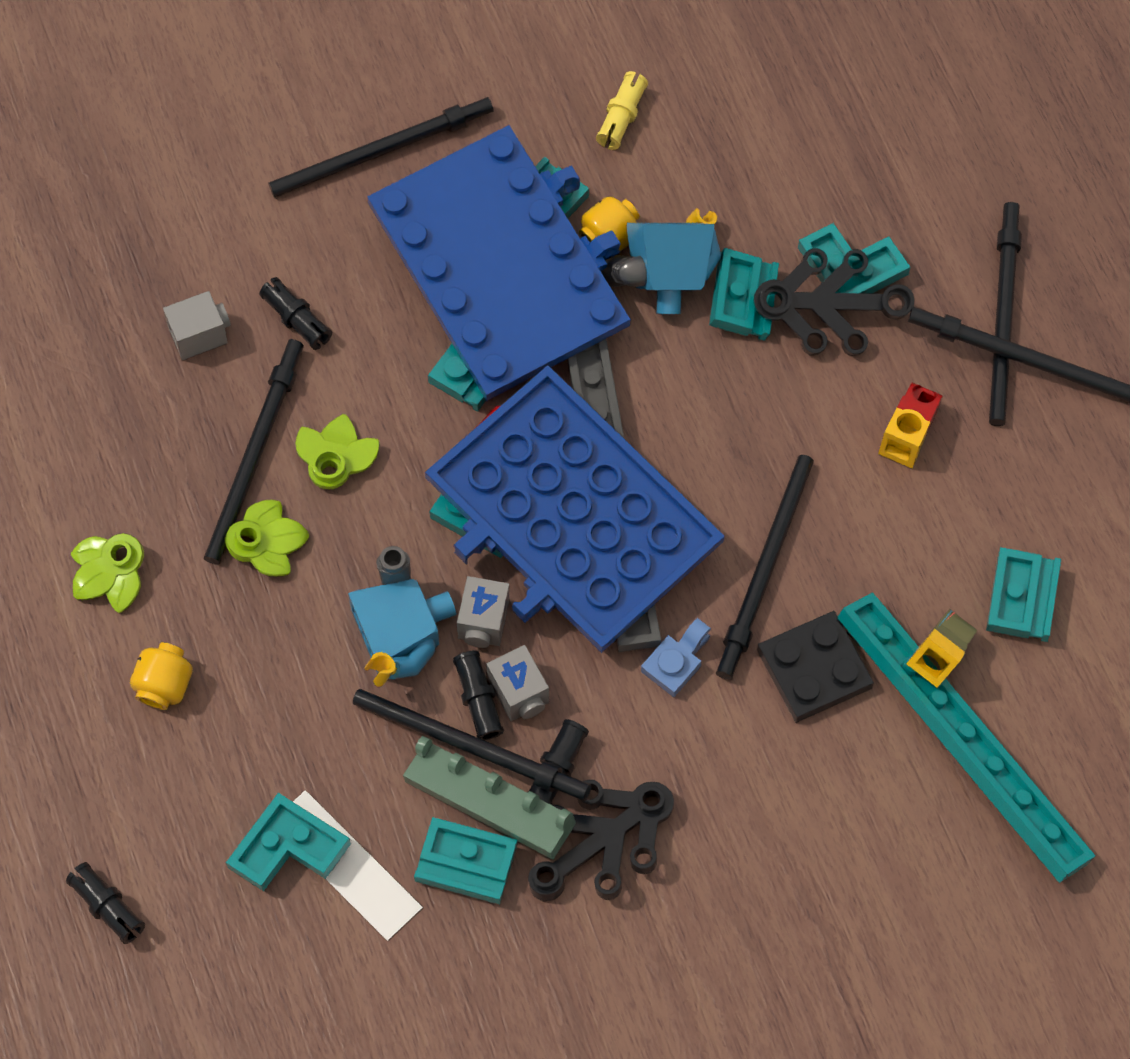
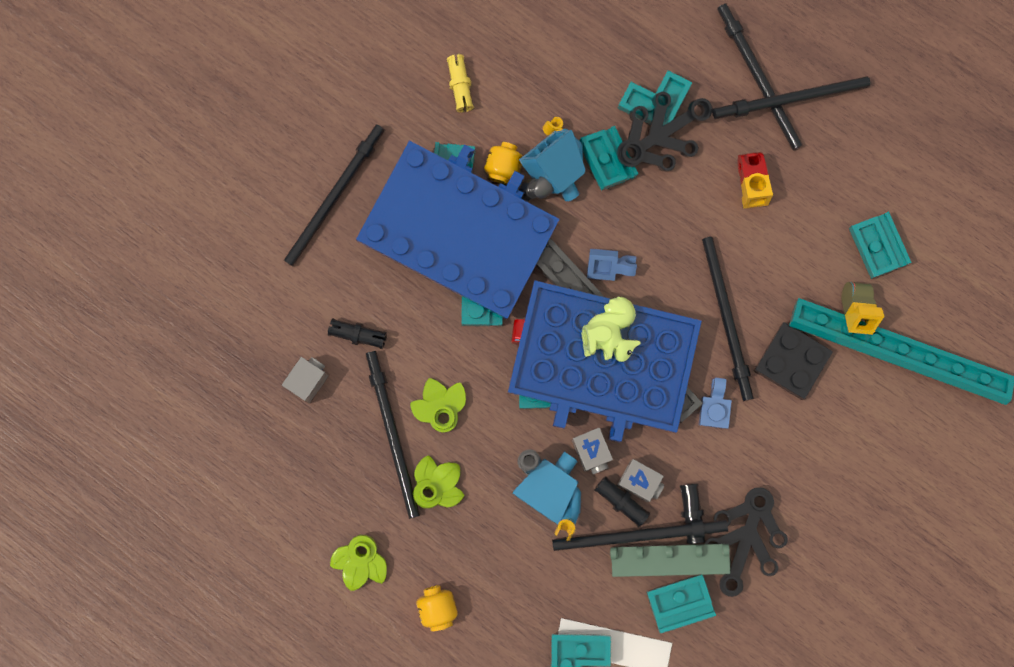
camera: 30 degrees left, 15 degrees up
(593, 465) = (604, 331): none -> yellowish green animal
(654, 412) = (606, 264): none -> medium blue plate

